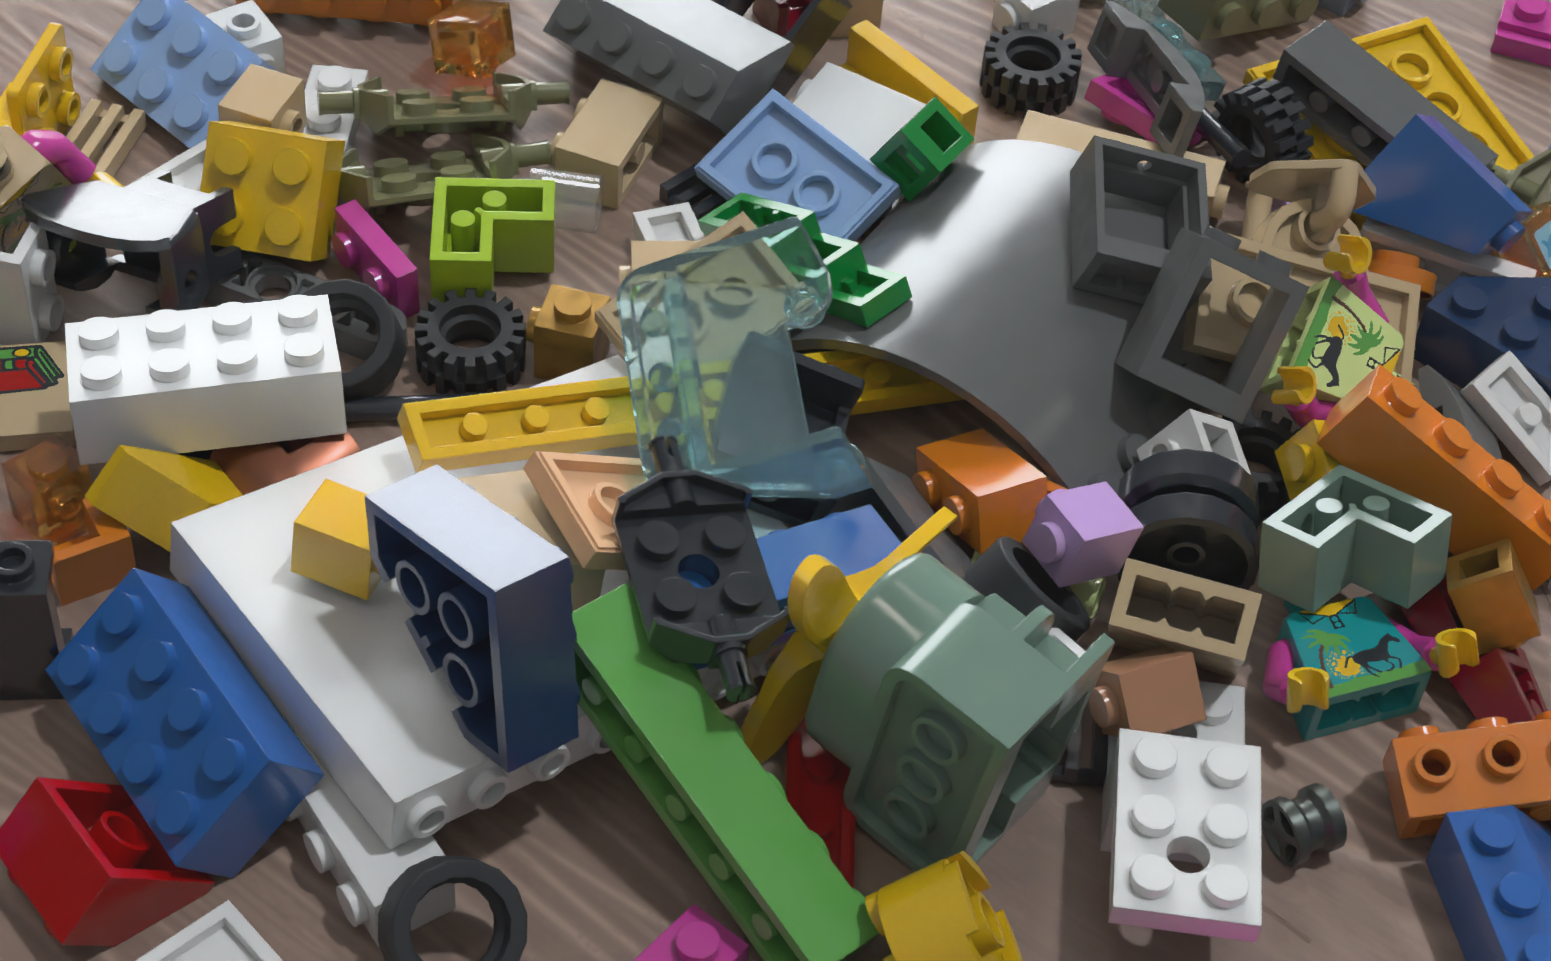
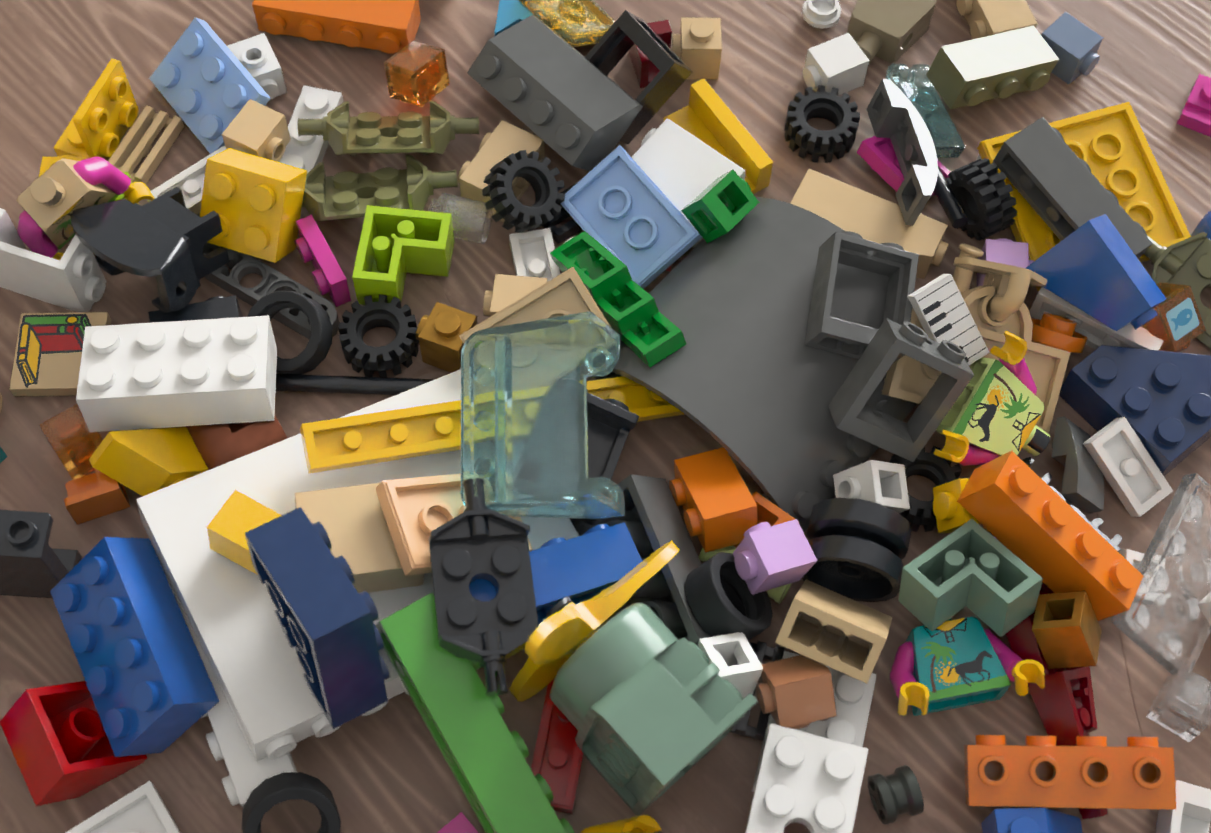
camera: 10 degrees right, 15 degrees up
(632, 168) = (540, 179): none -> black tyre
(1252, 218) = (948, 317): none -> white tile

